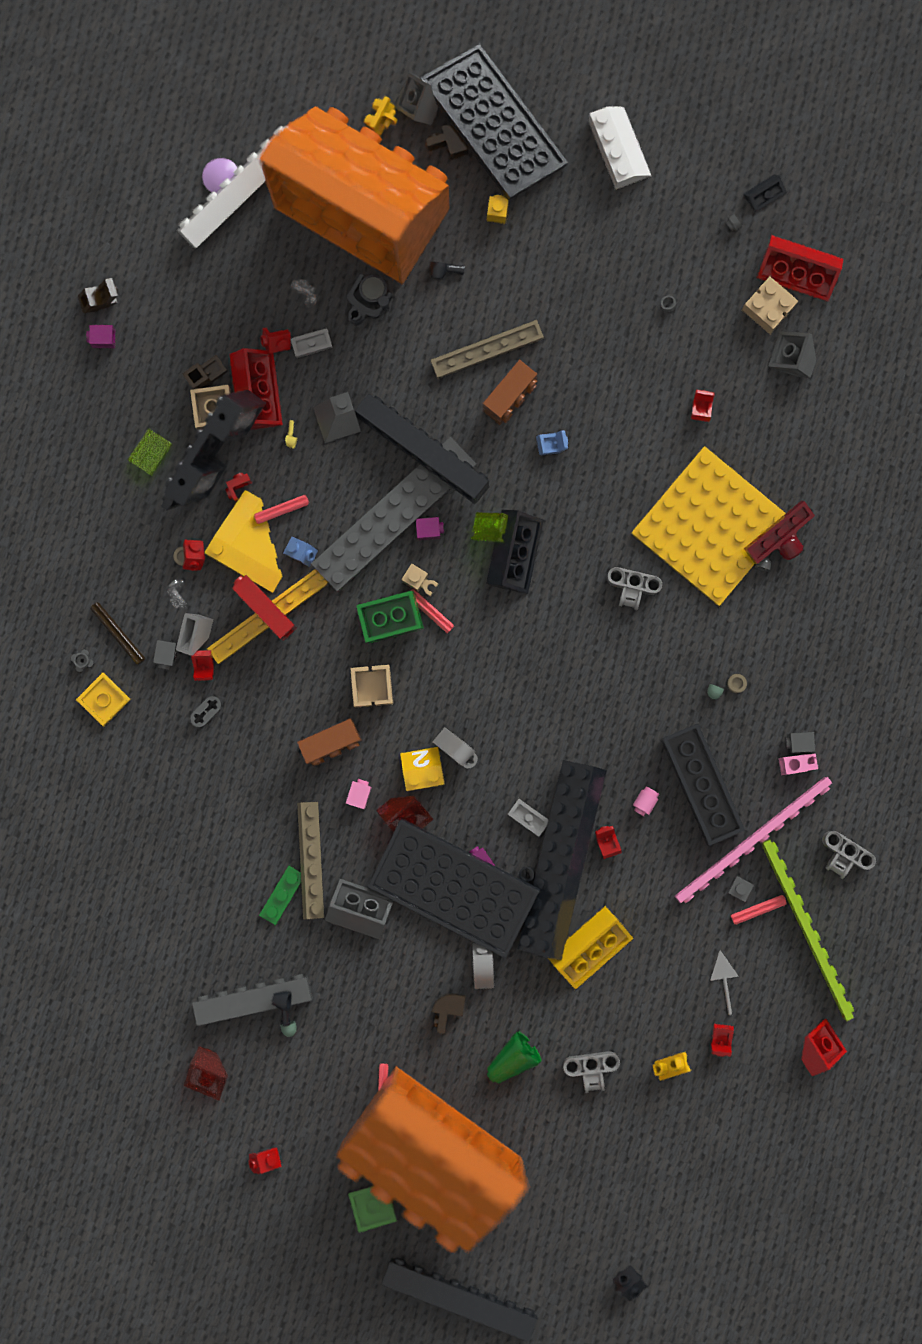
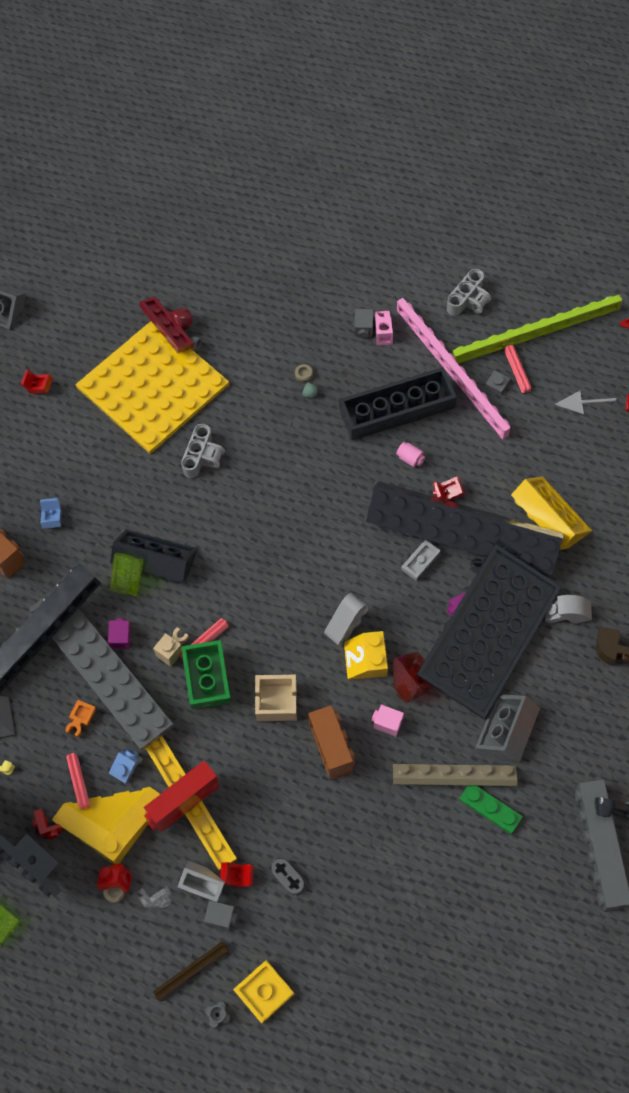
camera: 85 degrees left, 20 degrees down
(345, 503) = (80, 715): none -> orange plate

